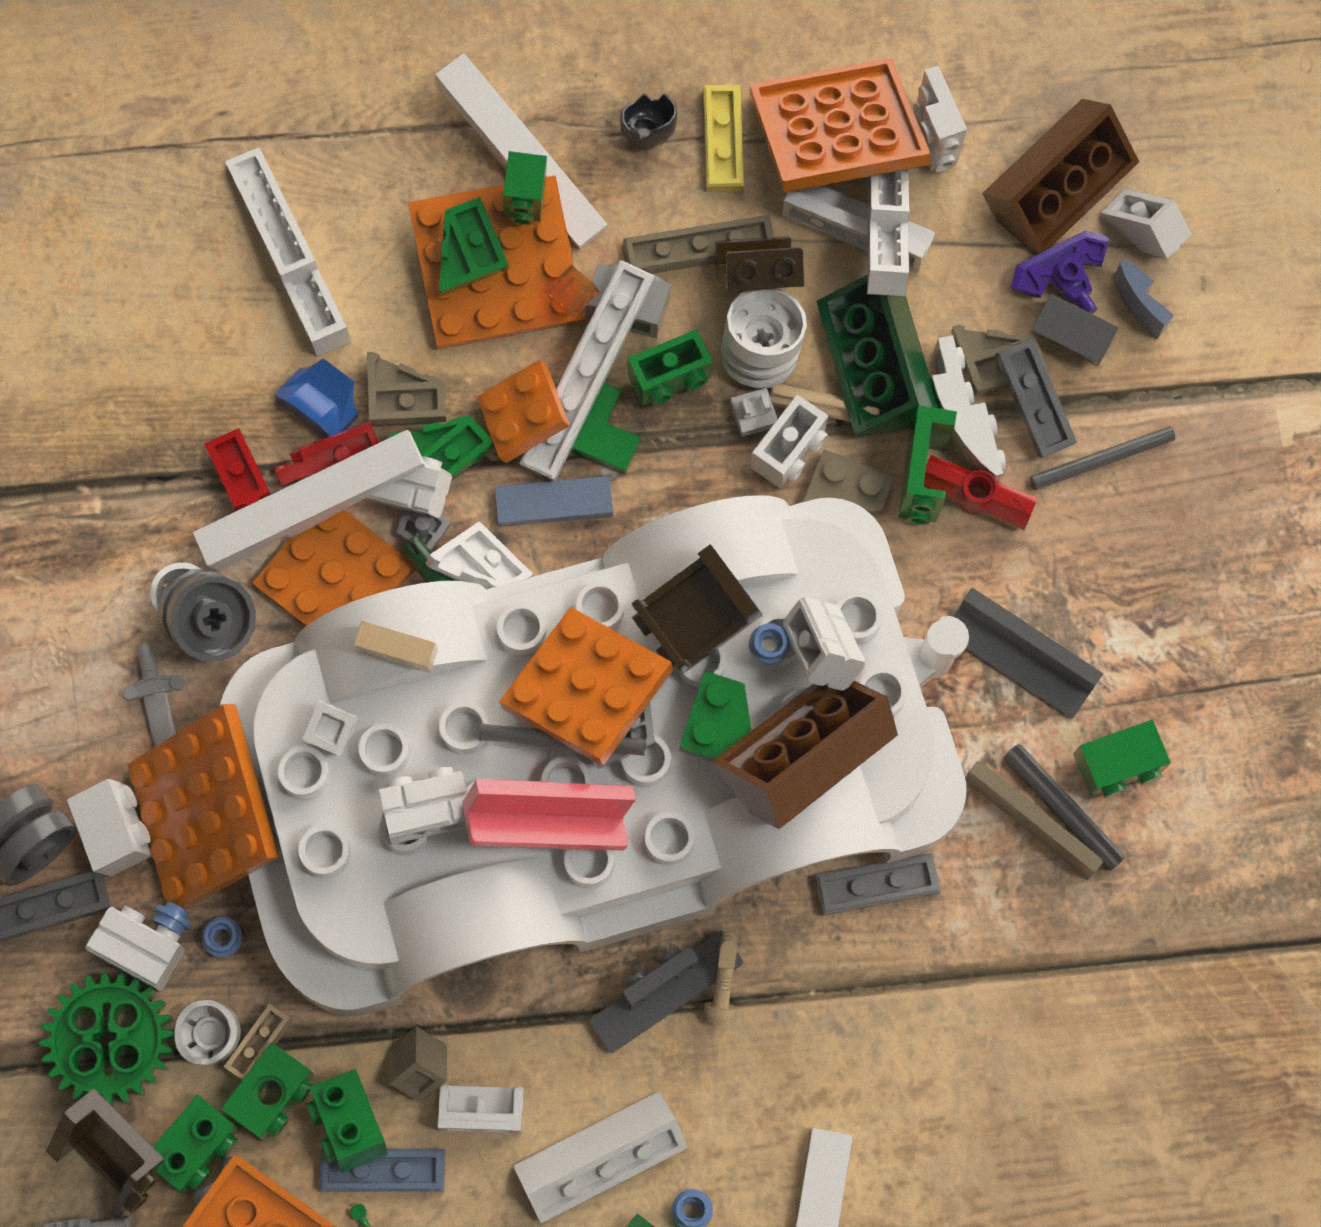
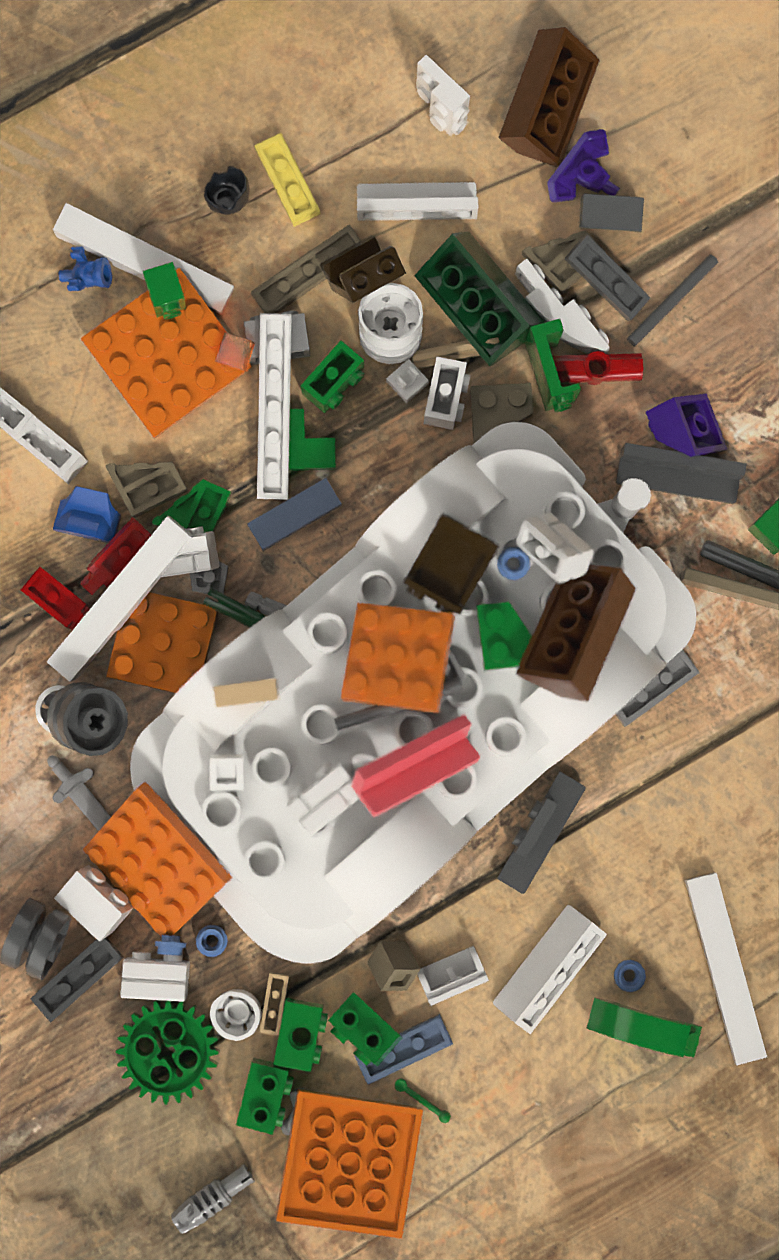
camera: 25 degrees left, 10 degrees up
(110, 1148) = (210, 1127): dark brown panel -> none
(450, 139) = (86, 273): none -> blue piece
(469, 247) = (143, 353): green wing -> none
(478, 559) = (264, 585): white wing -> none
(523, 411) = (241, 459): orange plate -> none
(719, 1010) = (584, 828): tan hinge -> none
(839, 125) = (370, 132): orange plate -> none
(888, 233) = (436, 180): white slope -> none
(1055, 601) = (687, 425): none -> dark purple slope
(1134, 290) = (639, 161): sand blue slope -> none
(1148, 222) = (627, 104): white slope -> none

